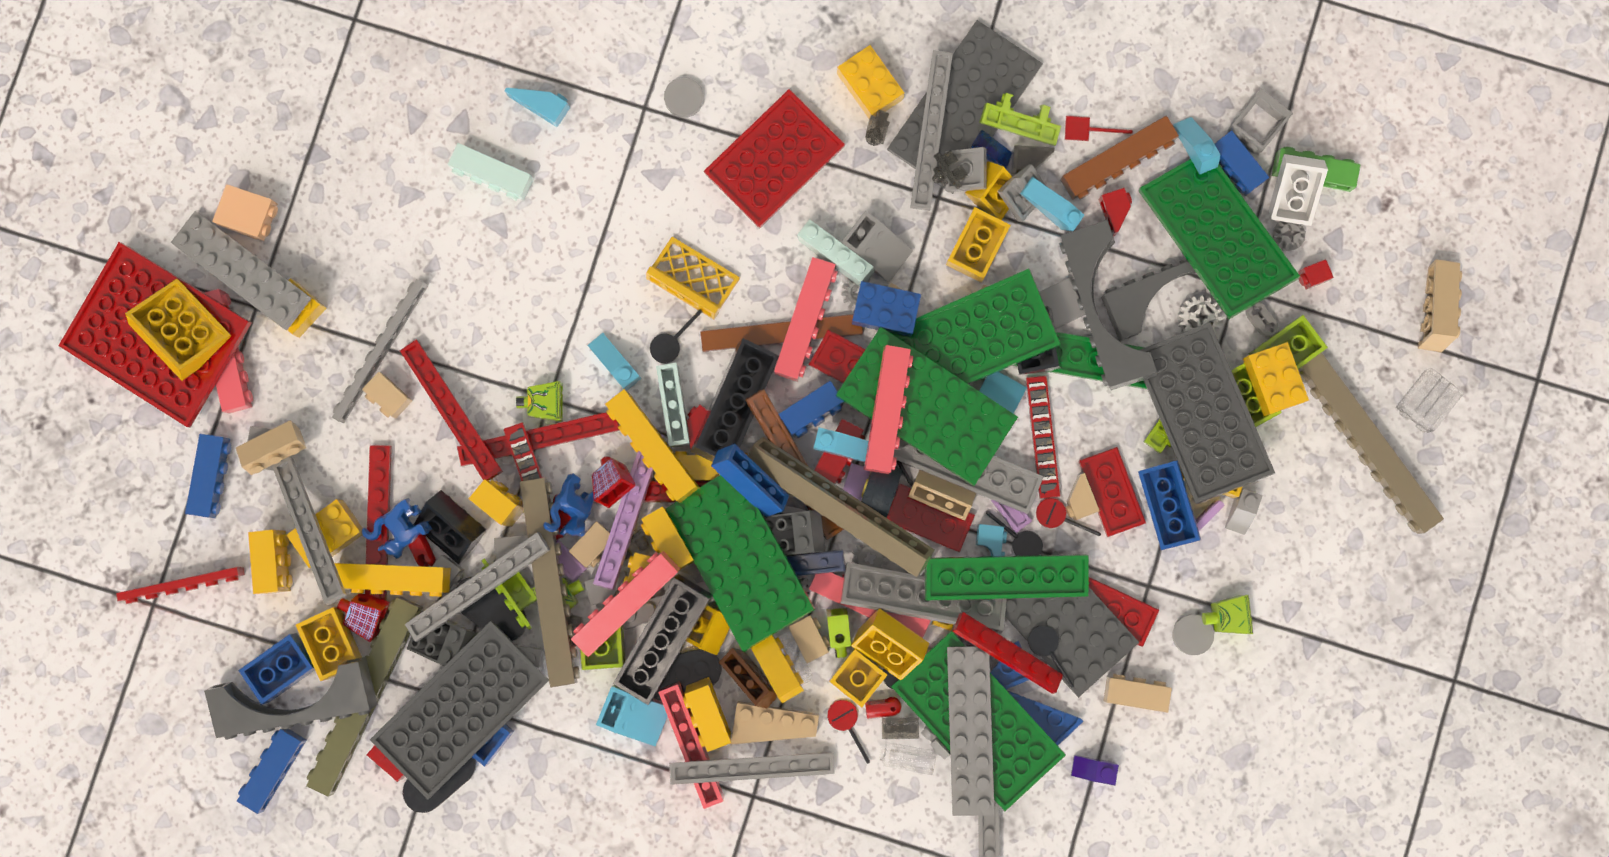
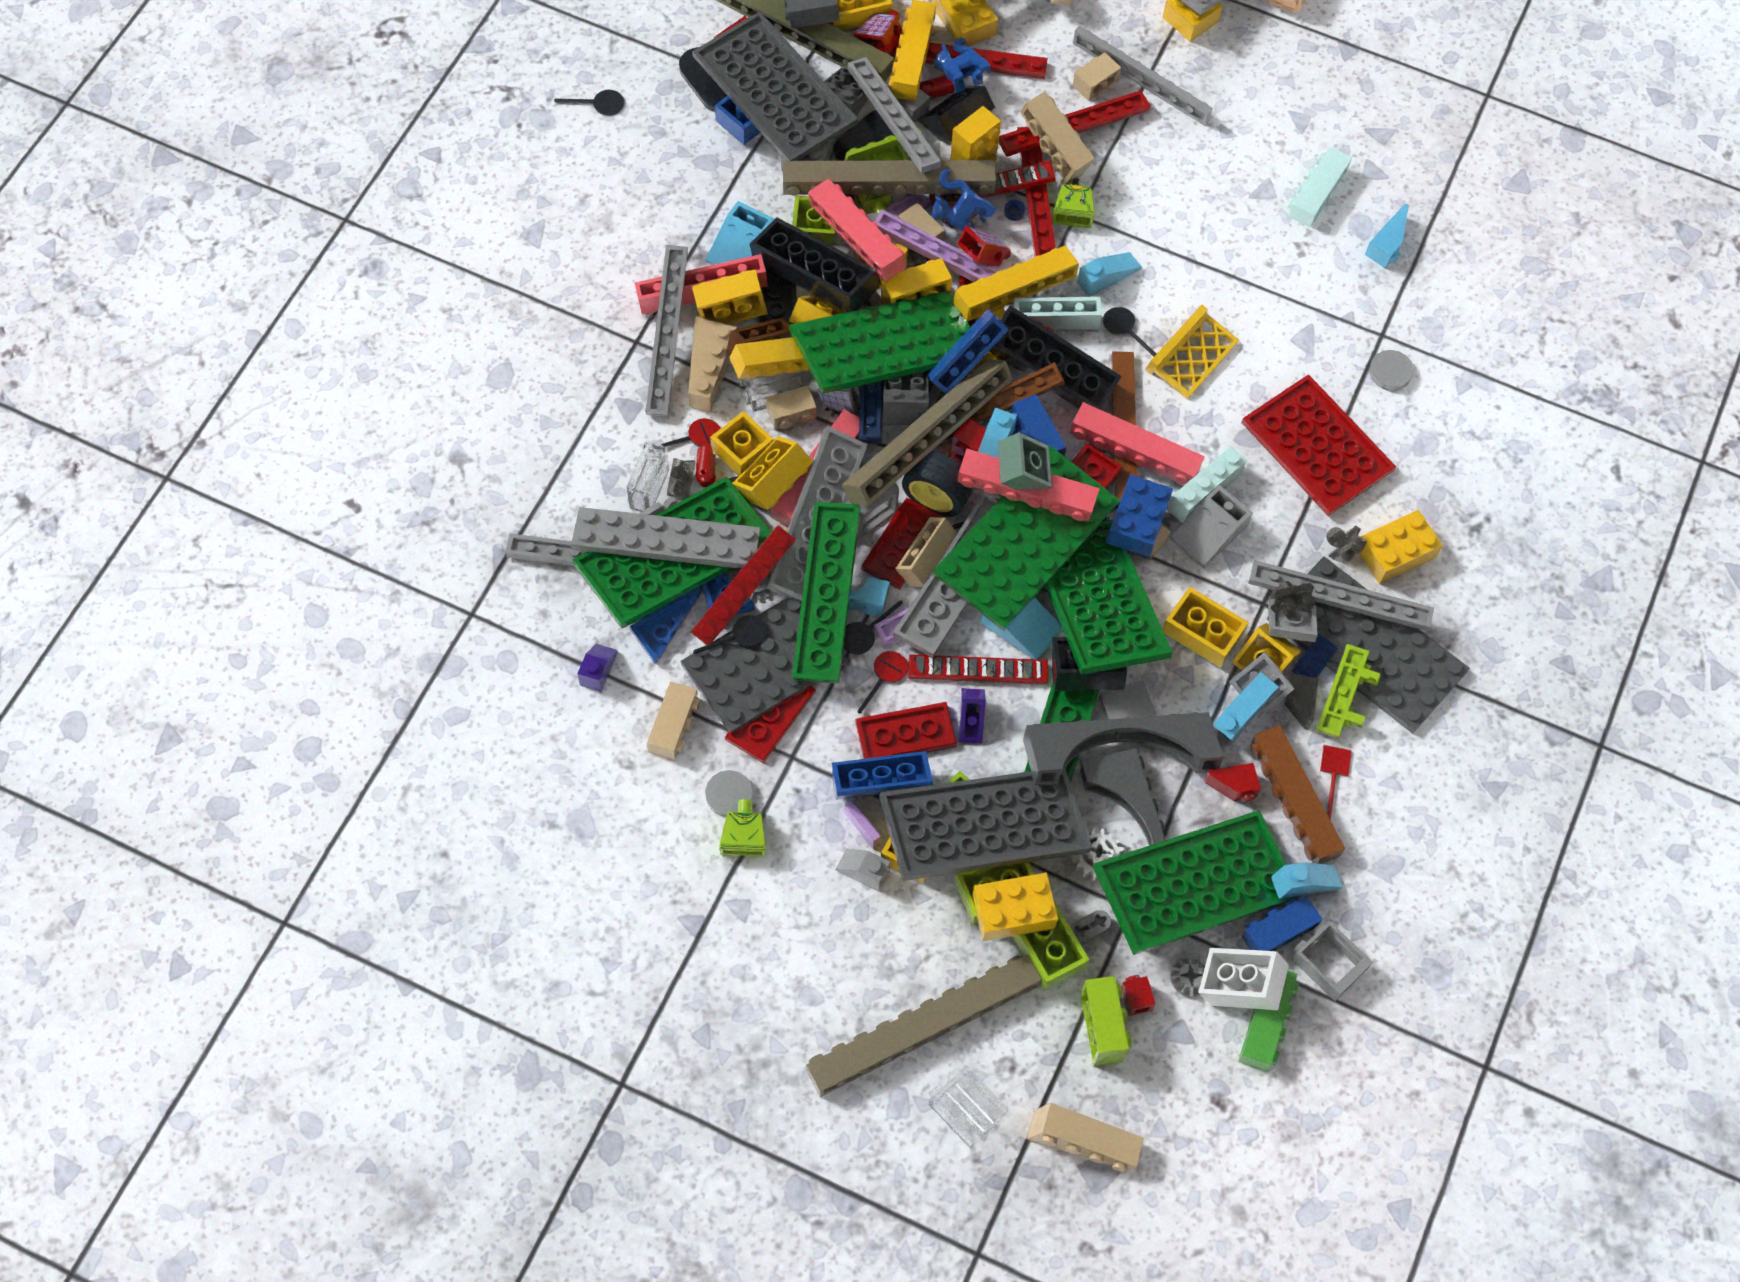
camera: 90 degrees right, 20 degrees down
(481, 423) = (1057, 137): none -> tan wedge
(554, 458) = (1014, 210): none -> clear blue tile
(839, 624) = (798, 428): lime torso -> none
(879, 413) = (1024, 463): none -> sand green slope
(1081, 499) = (902, 694): tan slope -> none
(1089, 437) = (972, 715): none -> dark purple slope
(1347, 297) = (1105, 1020): none -> lime brick

